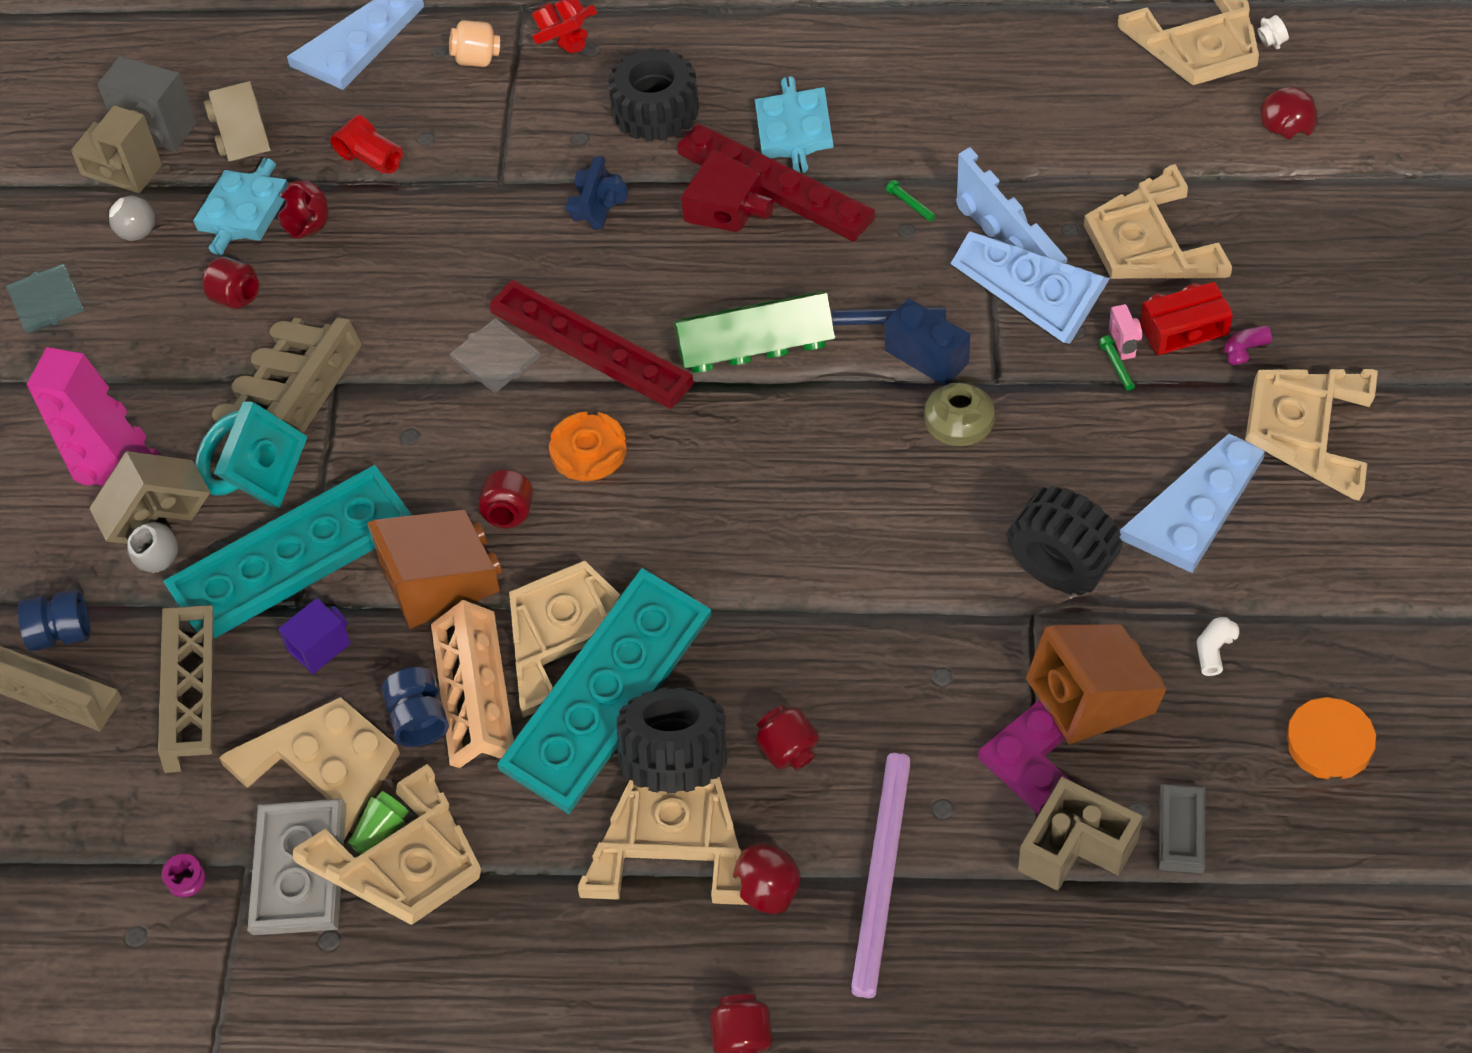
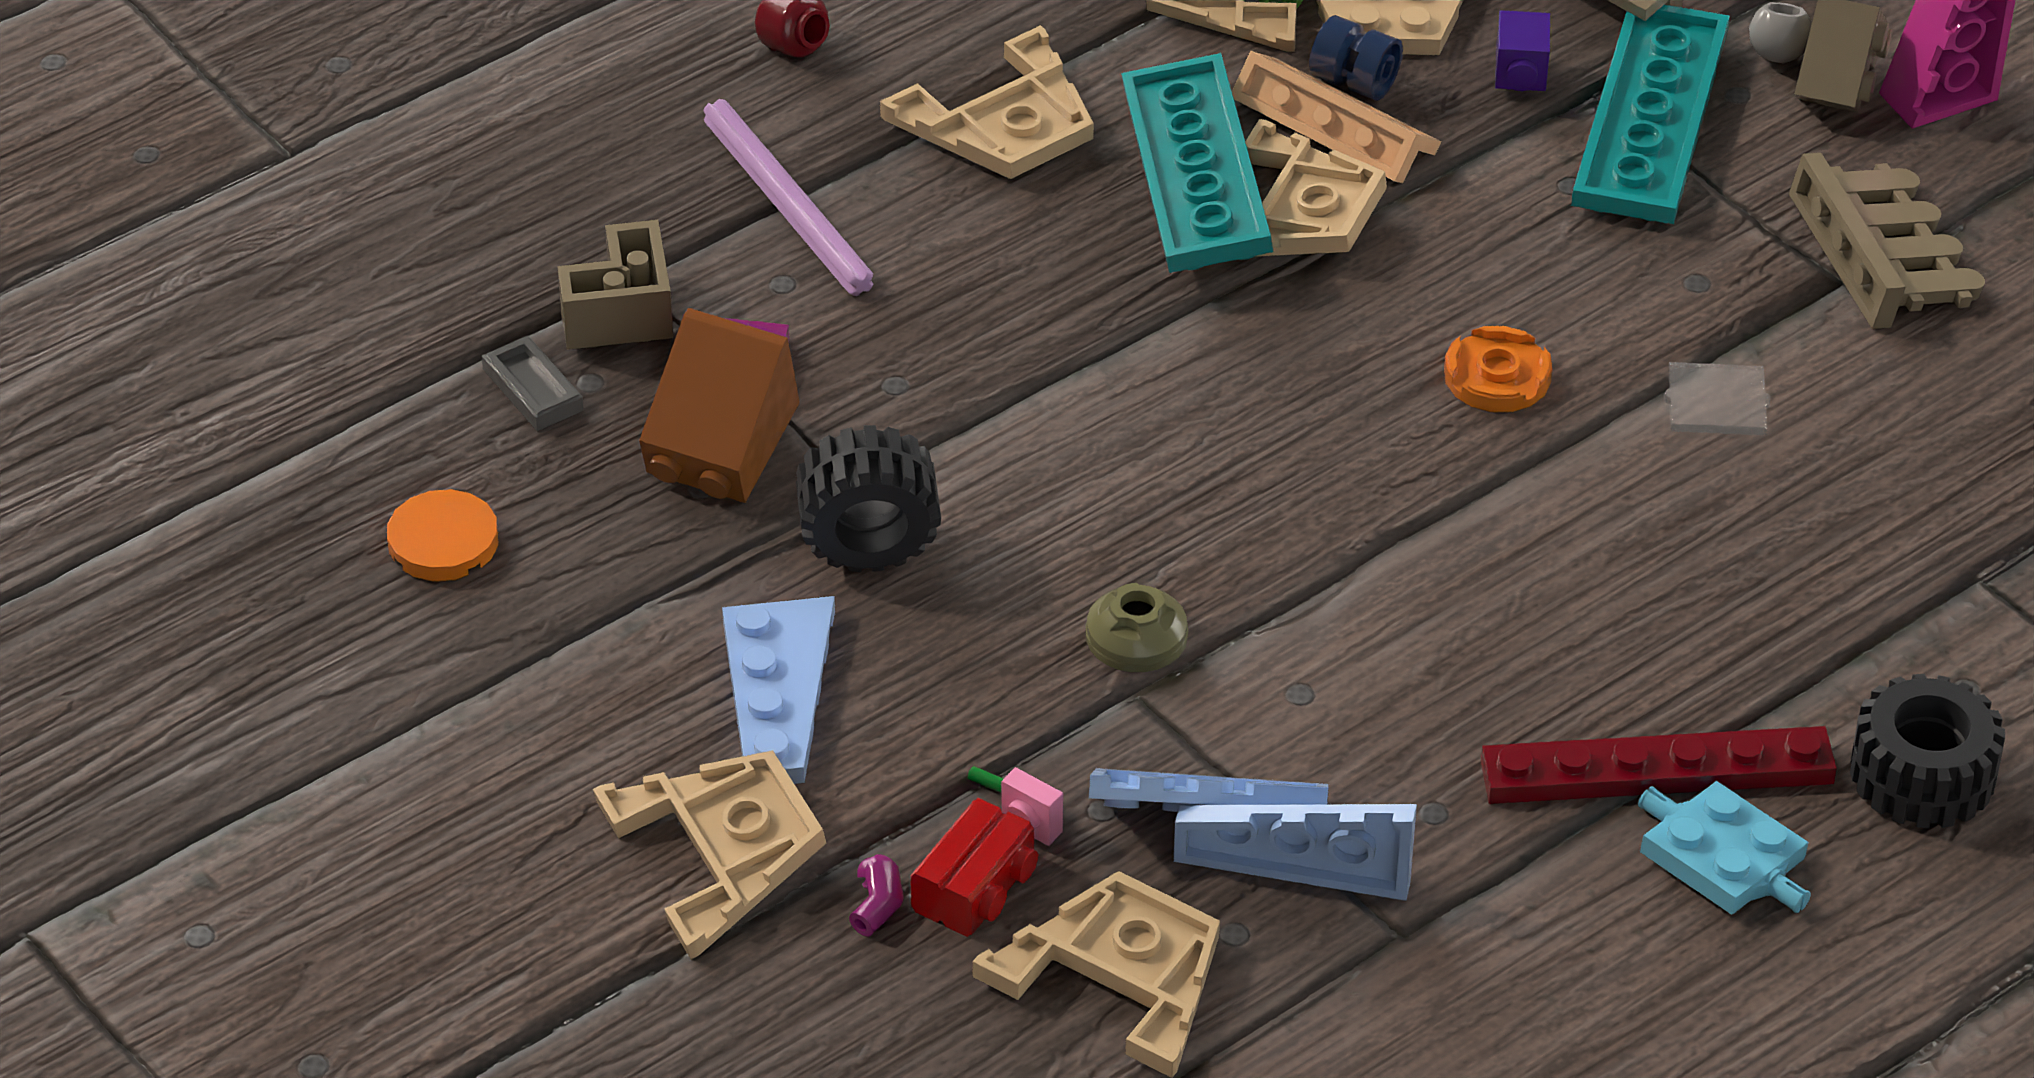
camera: 135 degrees right, 10 degrees down
(256, 456) = (1782, 125): teal tile -> none
(434, 562) = (1493, 151): dark orange slope -> none
(505, 499) = (1504, 257): dark red head -> none
(592, 344) = (1623, 451): dark red plate -> none
(598, 194) = (1831, 602): dark blue hips -> none
(672, 740) = (1096, 111): black tyre -> none
(725, 195) = (1683, 688): dark red torso -> none
(754, 330) = (1451, 546): brick -> none
(767, 878) = (882, 118): dark red hair -> none
(787, 738) = (981, 227): dark red head -> none
(871, 316) = (1333, 686): dark blue bar -> none
(894, 188) = (1466, 842): green piece -> none
(927, 342) = (1246, 655): dark blue brick -> none
(1209, 642) = (637, 545): white arm -> none

